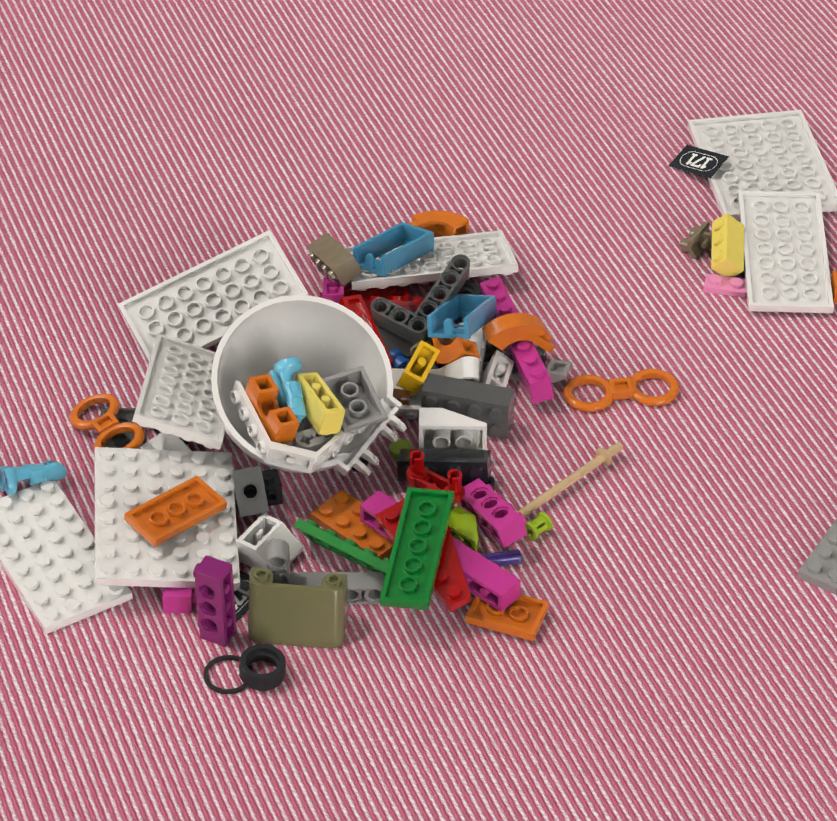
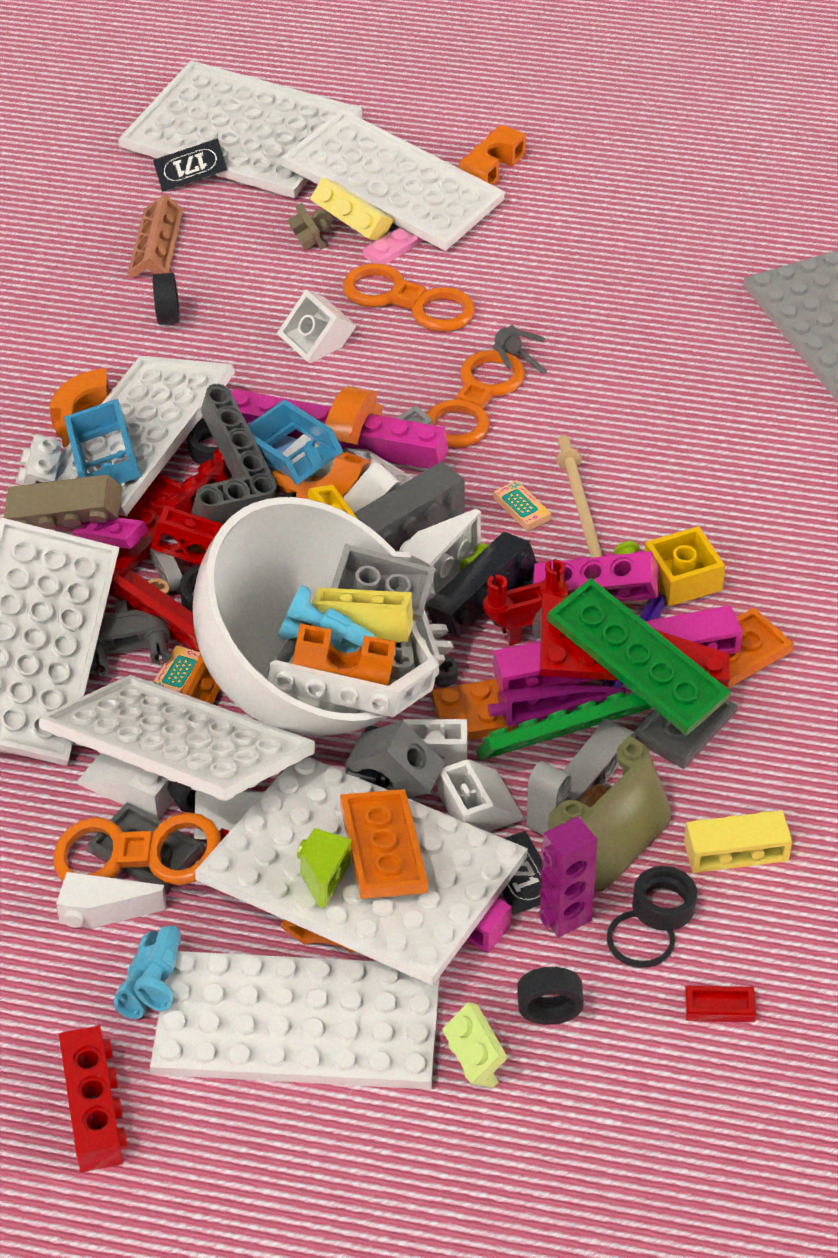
camera: 55 degrees left, 5 degrees up
(64, 433) = (103, 900): none -> white slope
(77, 632) = (475, 1045): none -> yellowish green bracket
(131, 490) = (323, 863): none -> lime slope
(138, 644) = (550, 982): none -> black tyre
(205, 731) = (720, 1003): none -> red tile
(291, 504) = (444, 736): none -> white brick
(337, 681) = (737, 841): none -> light yellow brick
(362, 234) = (39, 461): none -> white bracket
(363, 533) = (540, 701): none -> magenta piece
(364, 488) = (447, 679): none -> dark grey bush
(430, 623) = (675, 746): none -> dark grey tile
(542, 456) = (522, 505): none -> light nougat tile
(550, 550) = (686, 565): none -> yellow brick
(564, 217) = (166, 298): none -> black tyre
(607, 288) = (315, 327): none -> white slope
(618, 184) = (156, 237): none -> nougat fence
(683, 380) = (509, 341): none -> dark grey plant
(685, 317) = (409, 296): none -> orange bar

